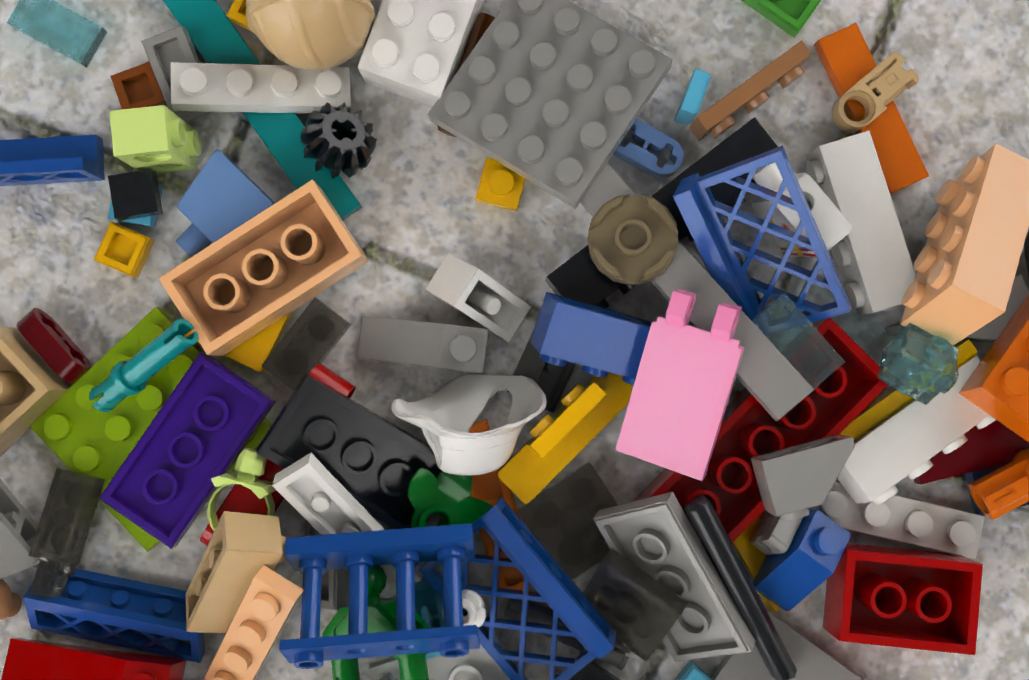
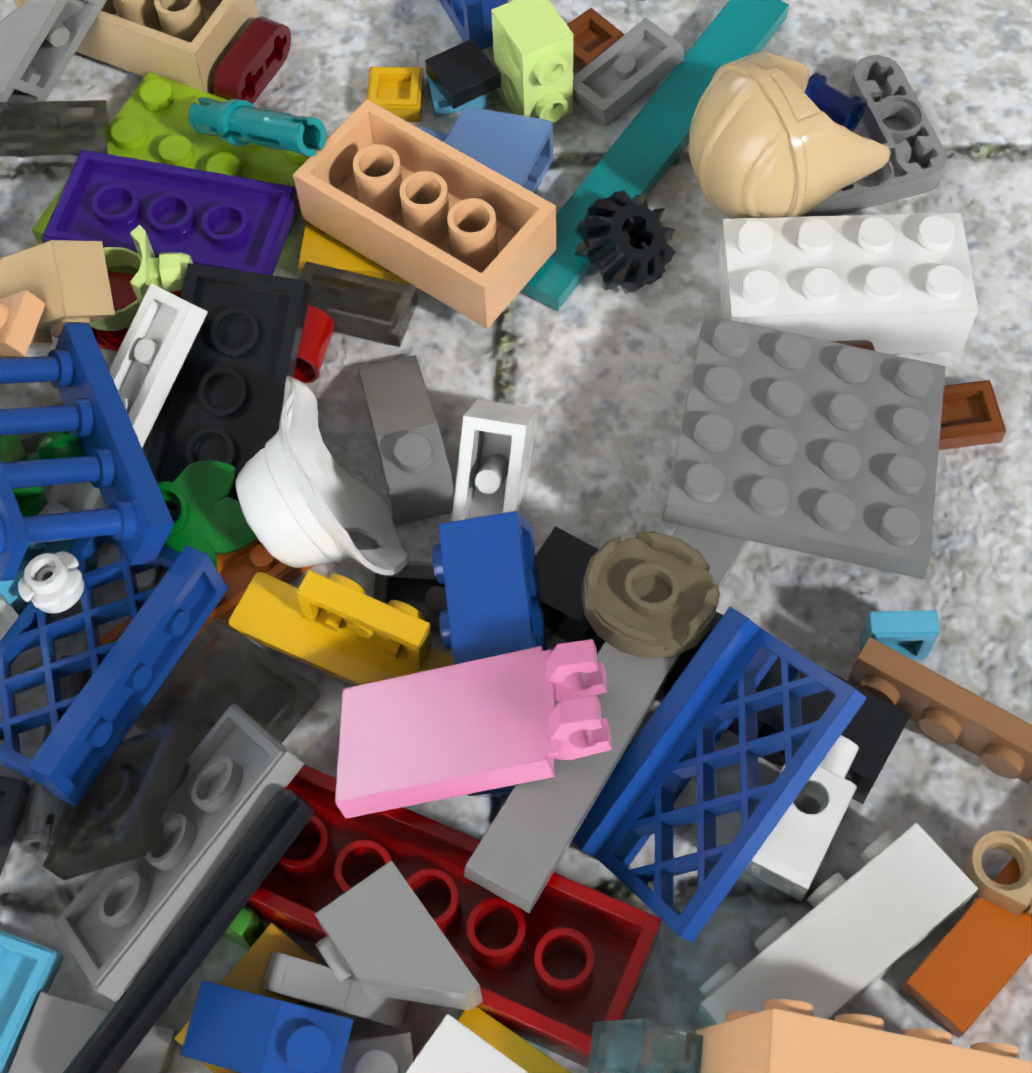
camera: 75 degrees right, 25 degrees down
(257, 88) = (649, 144): white plate -> none
(500, 186) = (652, 450): yellow plate -> none
(656, 141) = (813, 607): medium blue beam -> none
(798, 340) = (598, 877): clear light blue tile -> none

